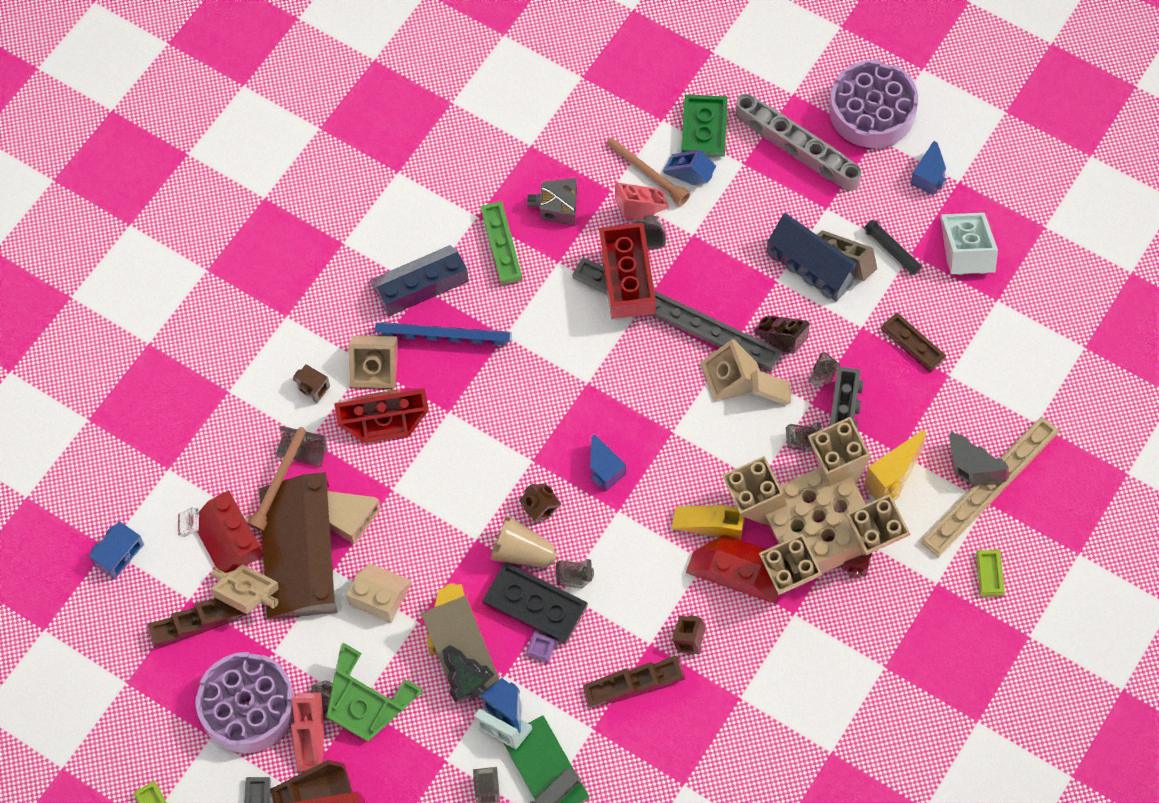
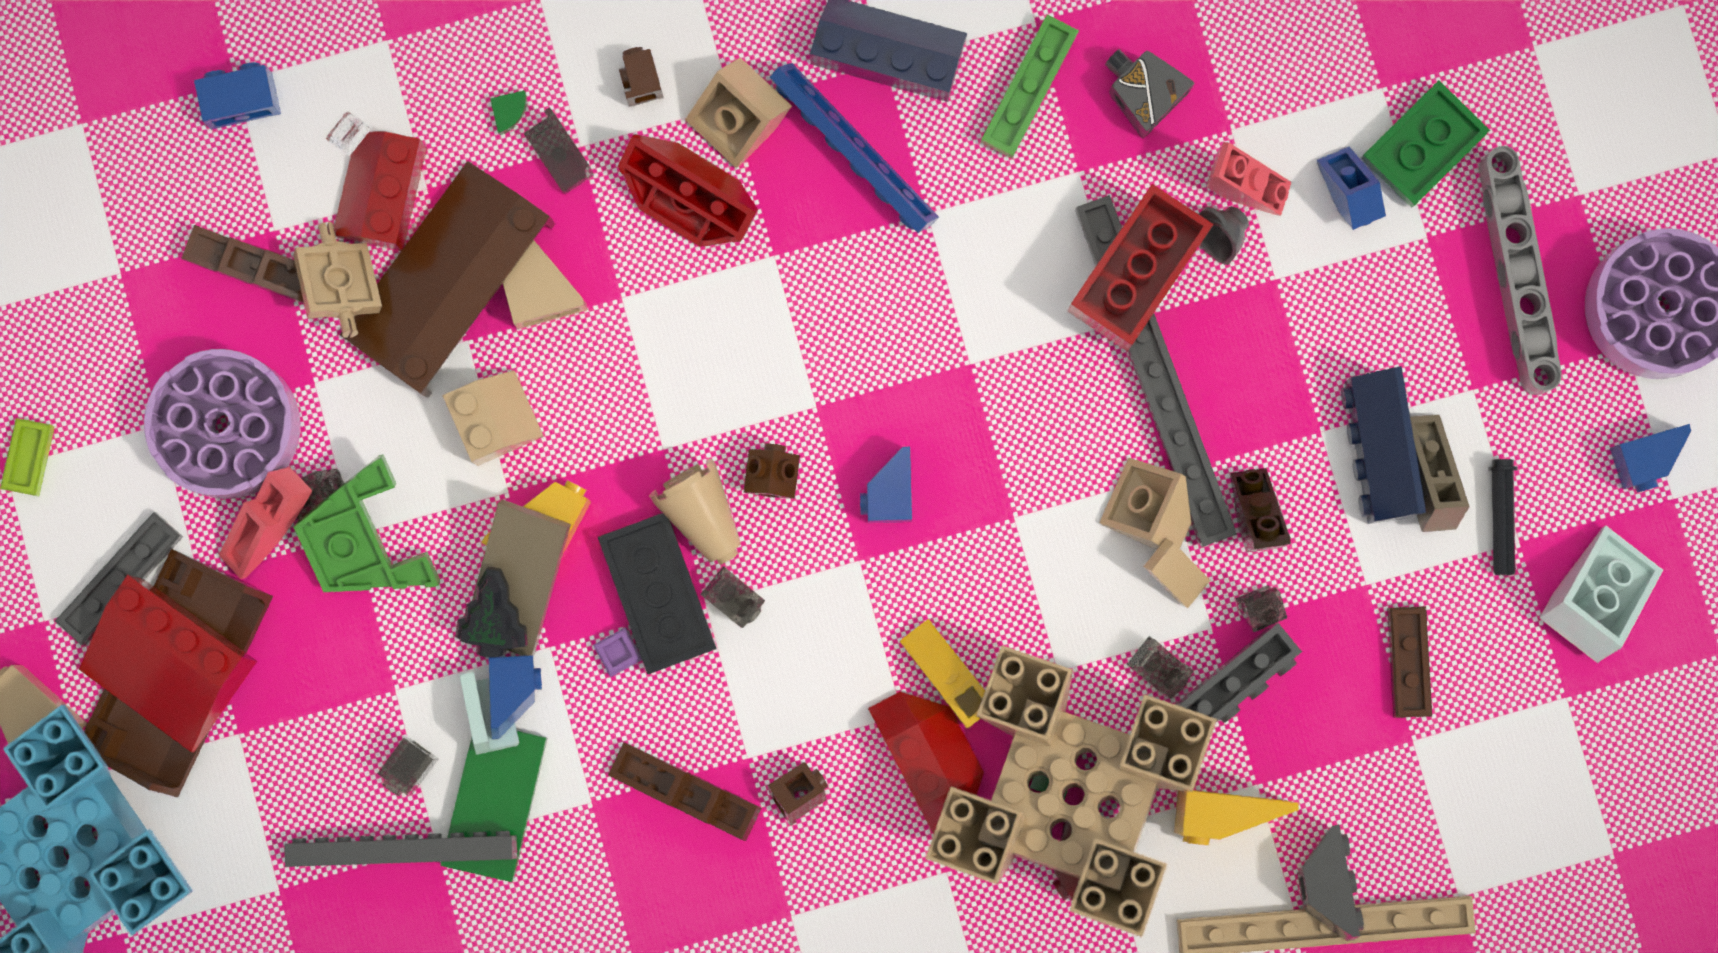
camera: 40 degrees right, 20 degrees up
(259, 450) = (508, 110): none -> green tile
(259, 518) = (429, 203): nougat piece -> none
(679, 194) = (1306, 211): nougat piece -> none

